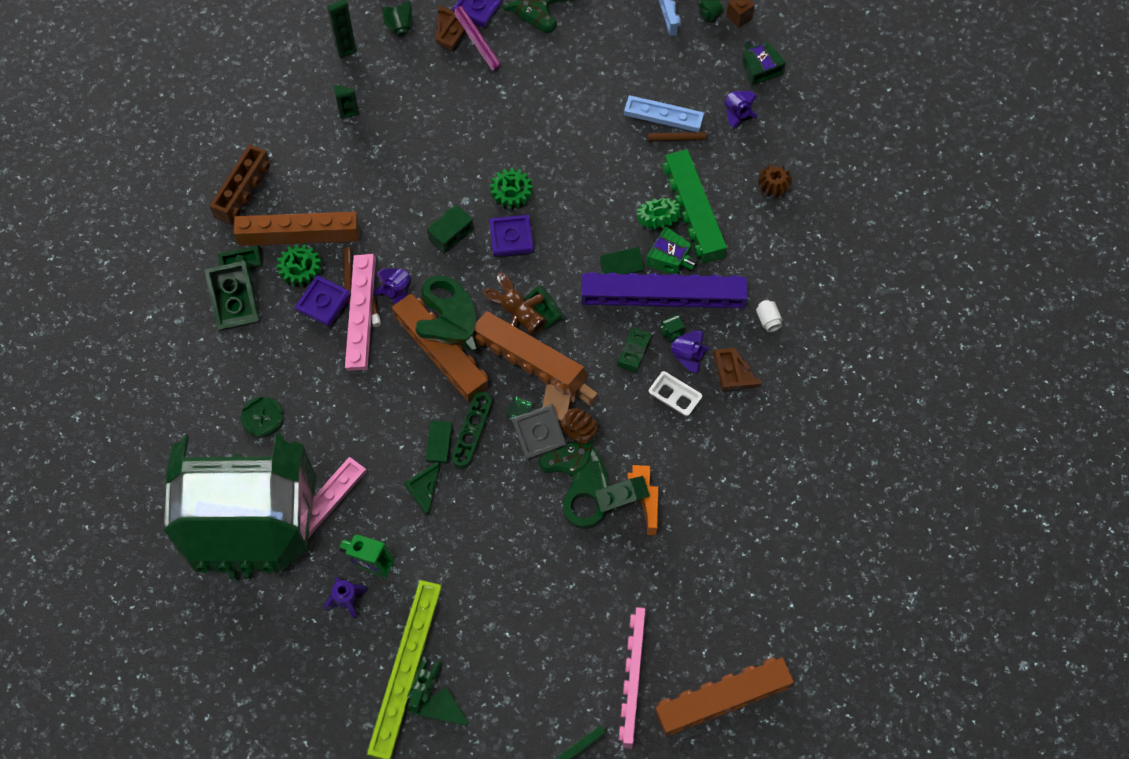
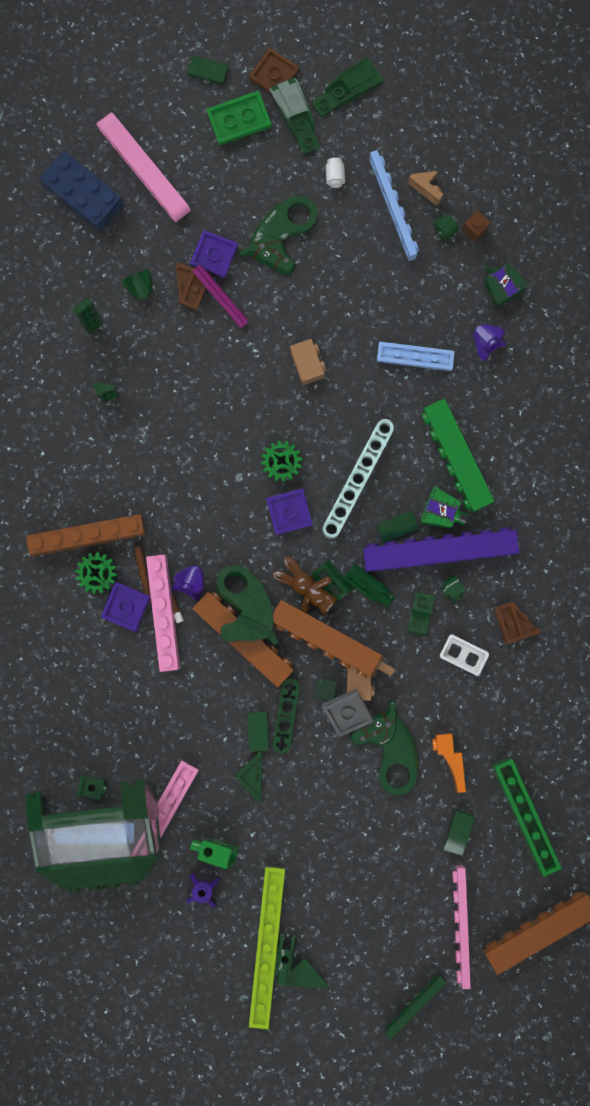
camera: 10 degrees left, 20 degrees up
(232, 294) = (40, 612): dark green slope -> none
(240, 184) = (23, 496): reddish brown brick -> none
(248, 254) = (38, 571): dark green slope -> none
(261, 417) = (93, 729): dark green tile -> none
(450, 228) = (231, 513): dark green brick -> none
(553, 104) = (307, 361): none -> medium nougat brick
(579, 425) = (383, 705): reddish brown gear -> none
(582, 313) = (368, 585): none -> dark green hinge
(583, 221) = (359, 469): none -> light aqua beam
(622, 493) = (431, 766): dark green brick -> none
(644, 575) = (459, 832): none -> dark green slope
(658, 213) = (425, 470): green gear -> none
(677, 136) = (430, 378): reddish brown bar -> none
(688, 349) = (472, 610): dark purple brick -> none
(722, 565) = (526, 817): none -> green brick
(769, 316) = (540, 563): white brick -> none
(775, 180) = (536, 412): reddish brown gear -> none

